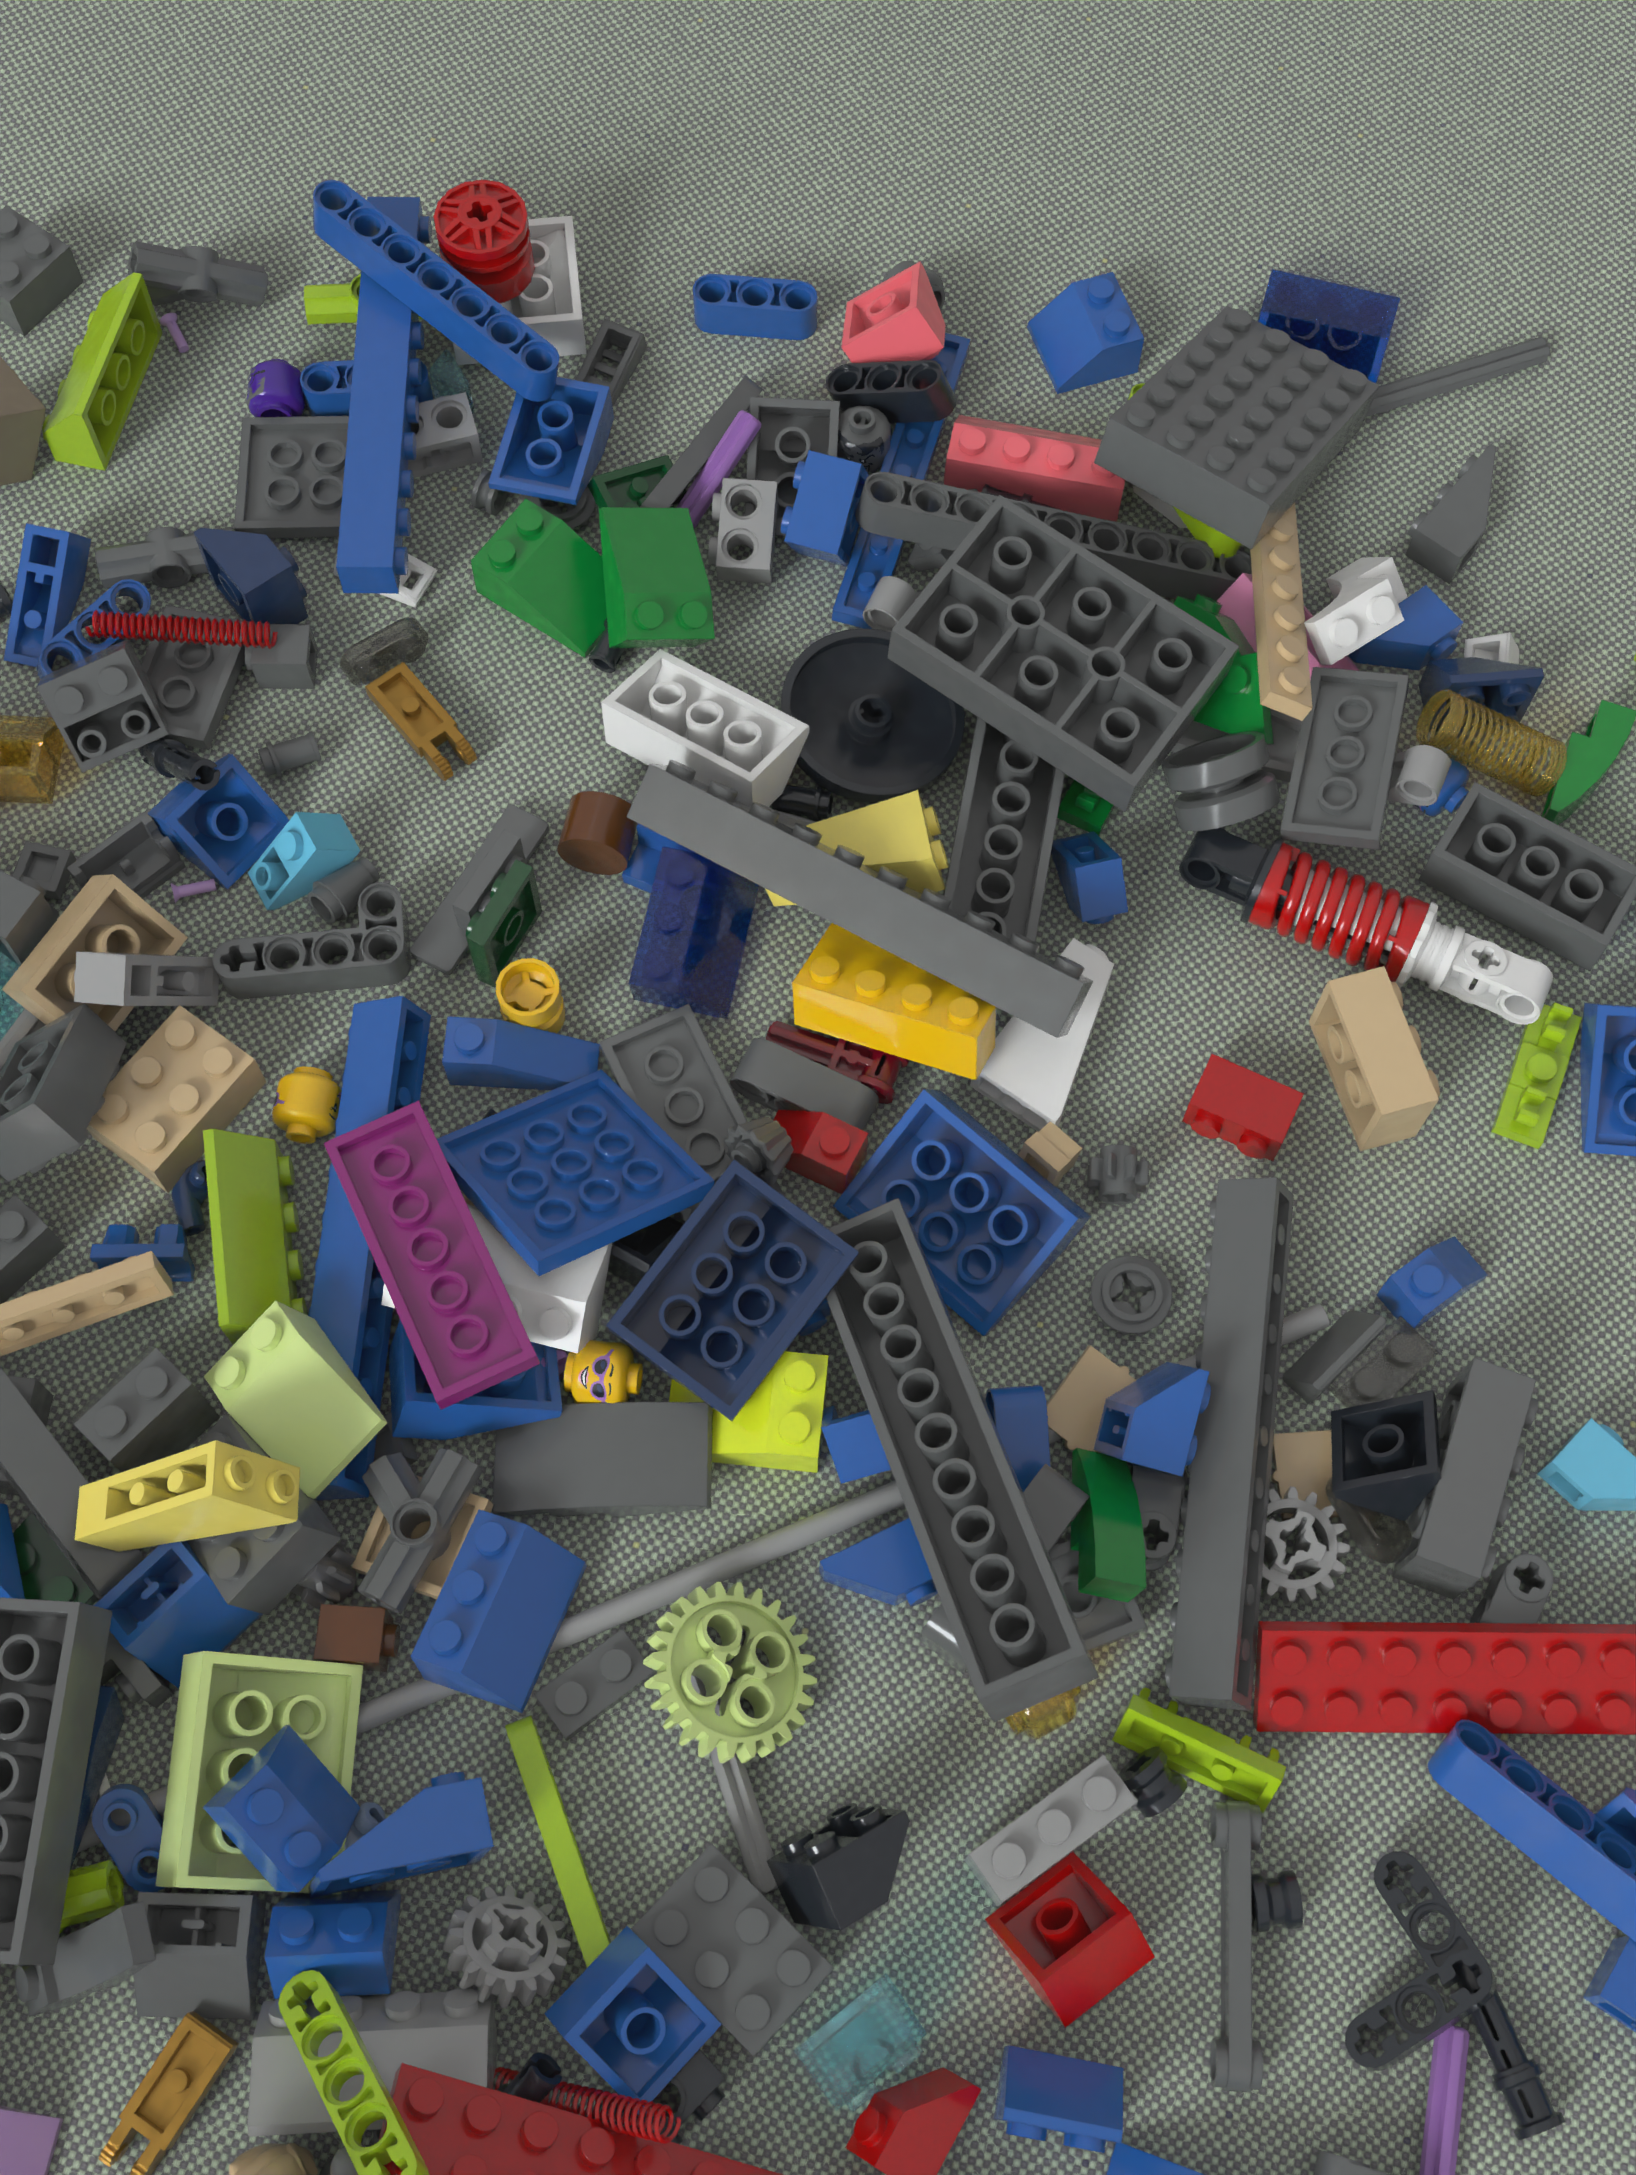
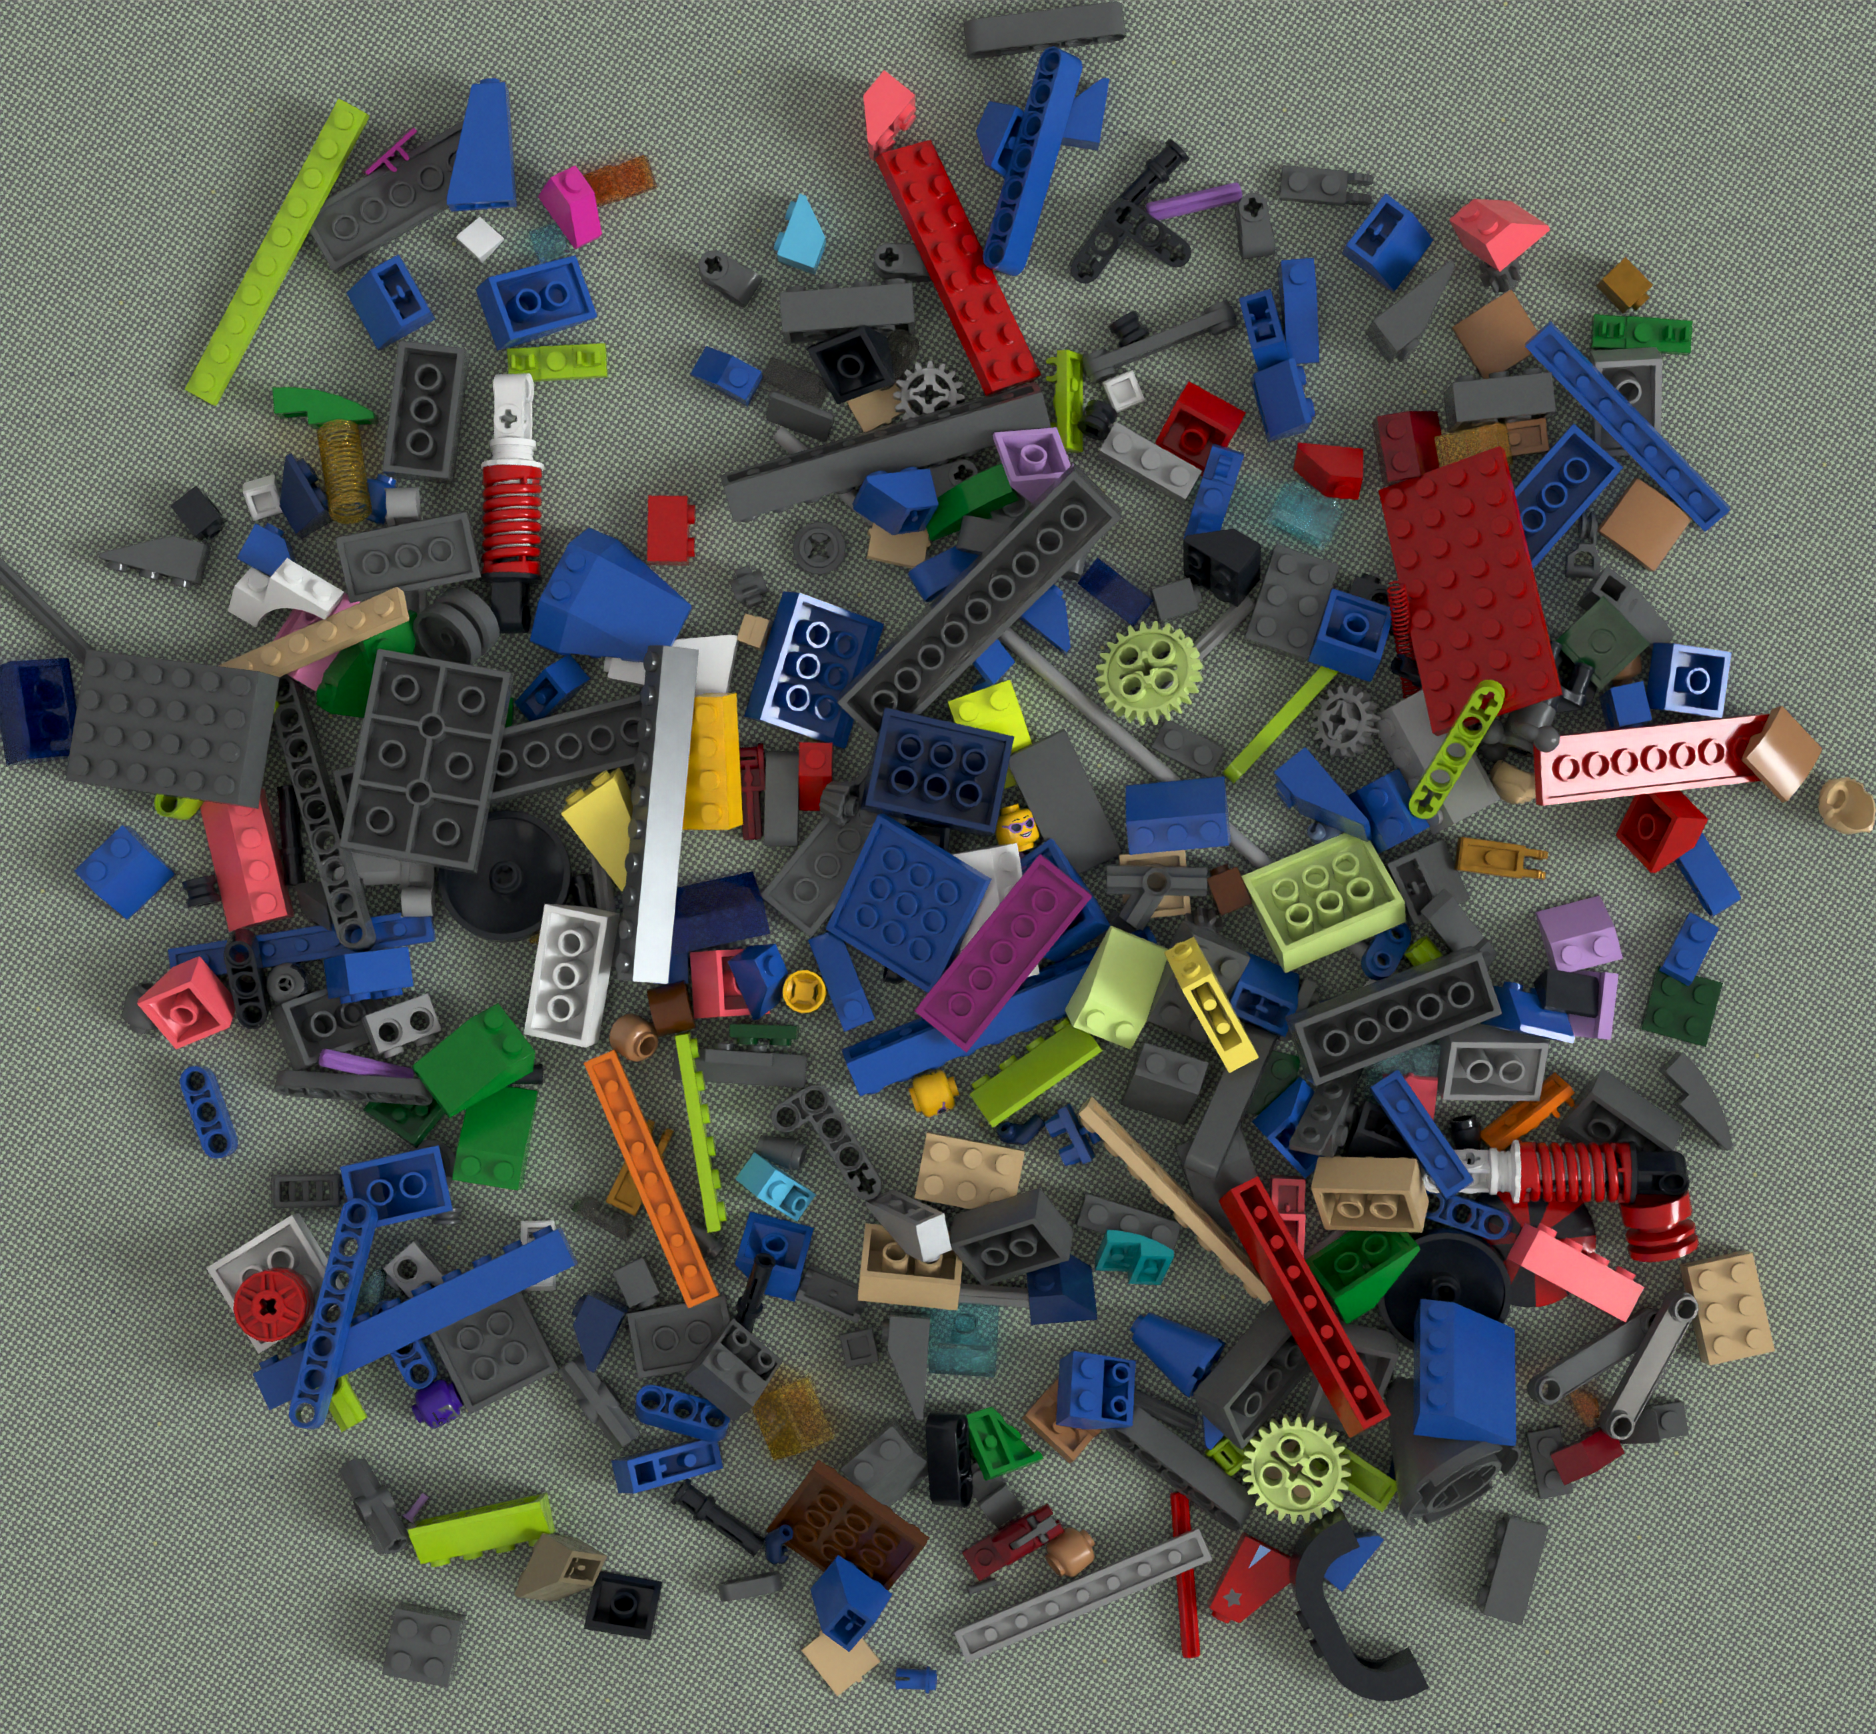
camera: 110 degrees left, 20 degrees up
(123, 622) = (657, 1338): red piece -> none
(193, 889) = (824, 1248): lavender piece -> none
(285, 1812) = (1339, 868): blue slope -> none
(396, 714) = (651, 1178): none -> orange plate
(425, 797) = (698, 1116): none -> lime plate
(580, 947) = (760, 977): none -> blue slope
(584, 770) = (633, 1037): none -> medium nougat head
(591, 920) = (715, 986): none -> coral slope
(821, 1770) = (1175, 600): none -> dark grey brick
(877, 1683) = (1115, 591): none -> clear blue slope
(960, 1911) = (1214, 490): none -> blue plate
(1022, 399) = (201, 891): none -> black wheel
(1133, 1633) = (1032, 459): none -> lavender slope
(1179, 980) = (606, 603): none -> blue wedge
(1179, 1849) = (1123, 391): none -> white tile
(1188, 2122) = (1264, 329): none -> blue brick
(1374, 1058) = (604, 462): tan brick -> none
(1500, 578) = (199, 514): none -> black brick
(1576, 1347) = (734, 279): none -> dark grey piece

